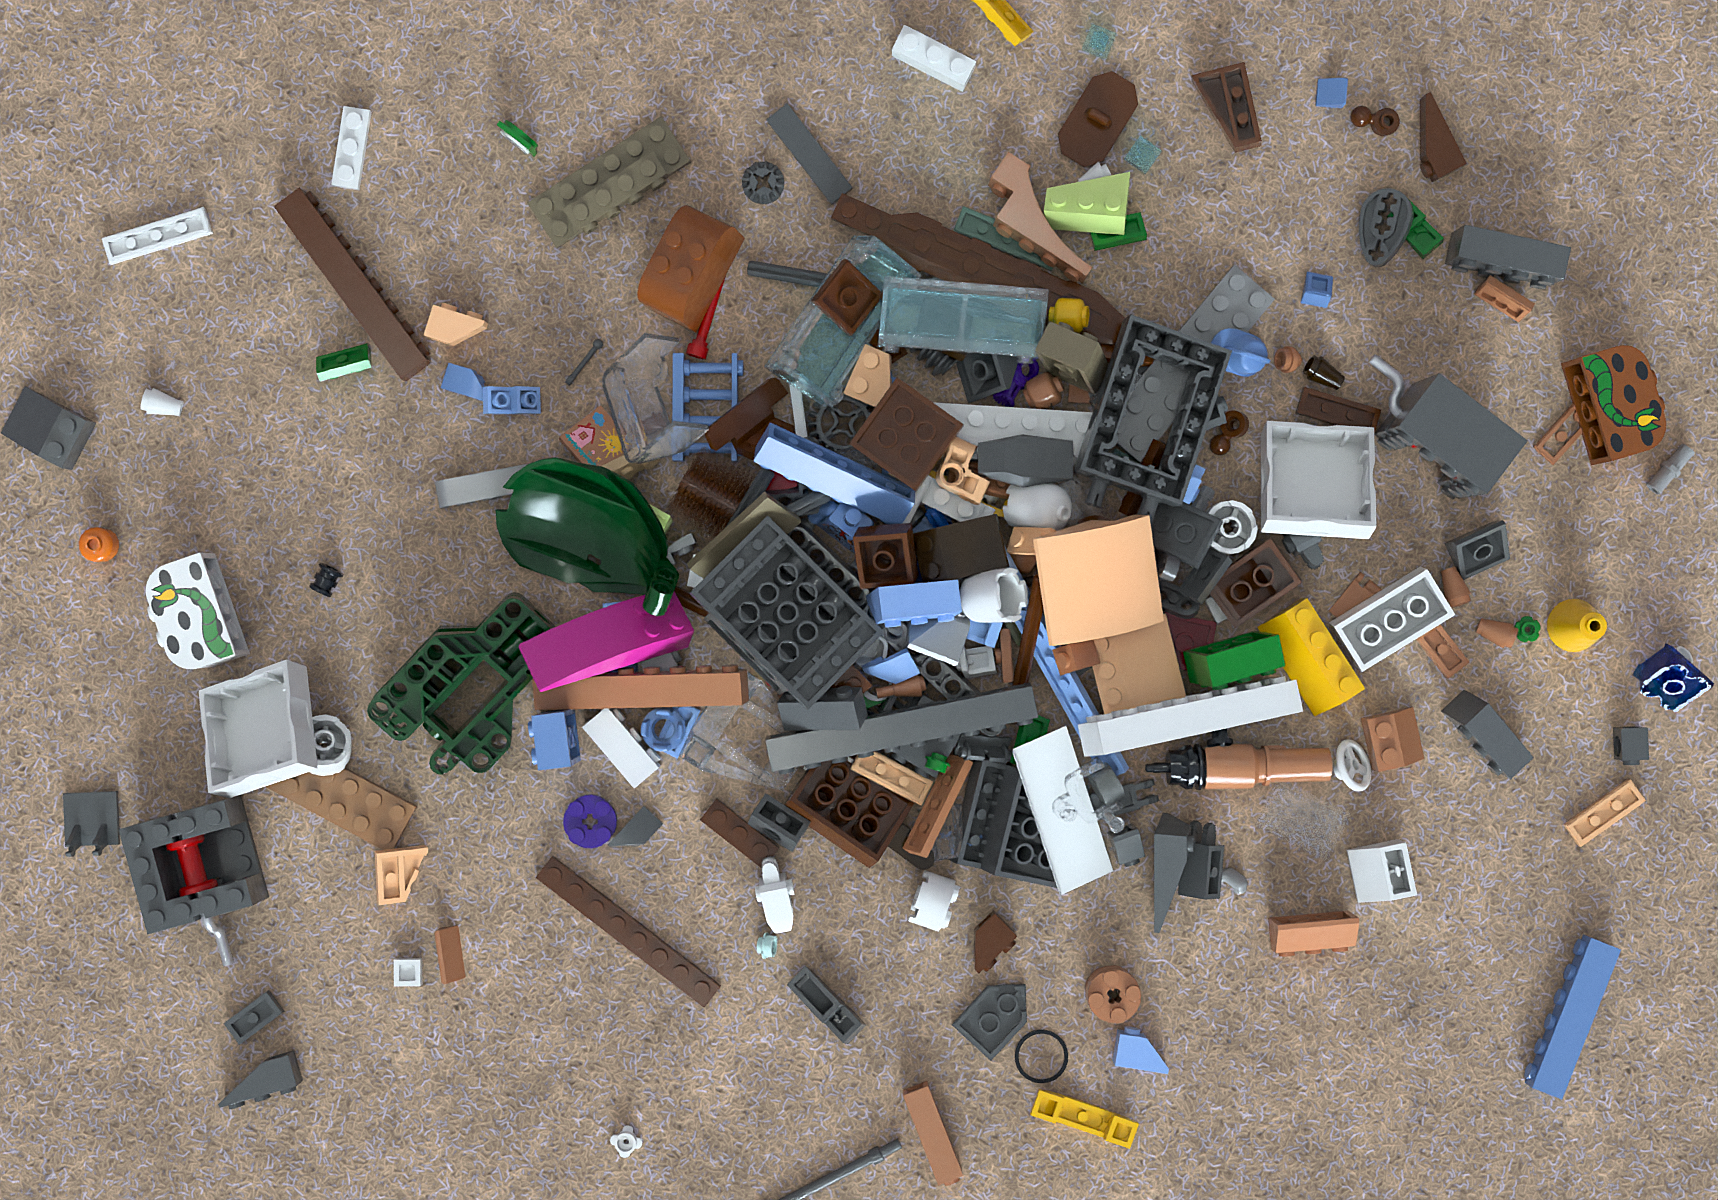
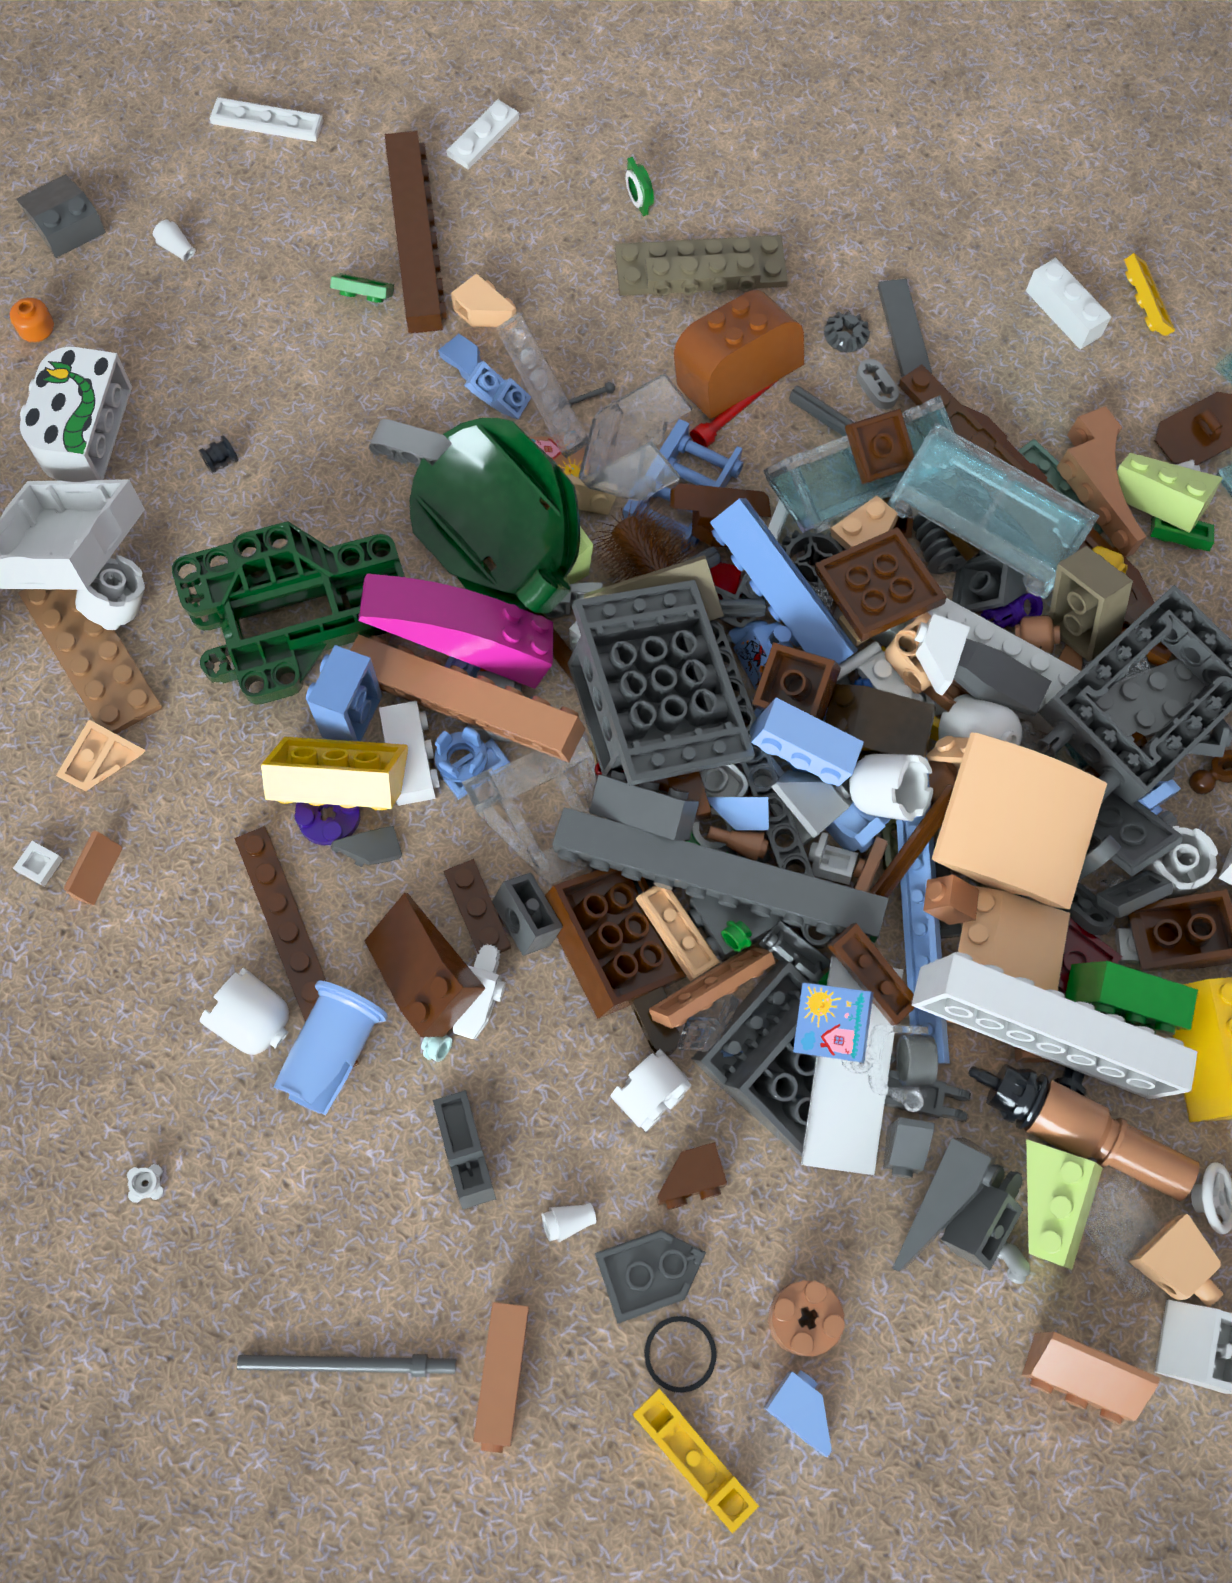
camera: 25 degrees right, 20 degrees down
(545, 378) = (543, 385): none -> clear plate
(581, 795) = (335, 772): none -> yellow slope
(628, 999) = (248, 1014): none -> white cylinder
(697, 995) = (327, 1046): none -> light blue piece
(728, 905) = (422, 969): none -> reddish brown slope
(816, 216) = (873, 386): none -> light grey beam
(922, 1014) = (567, 1220): none -> white cone
(979, 473) = (940, 649): none -> white slope
(1036, 798) = (833, 1022): none -> medium blue tile
(1046, 746) = (873, 973): none -> reddish brown plate
(1245, 827) = (1058, 1201): none -> yellowish green wedge
(1343, 825) = (1180, 1261): none -> light nougat torso

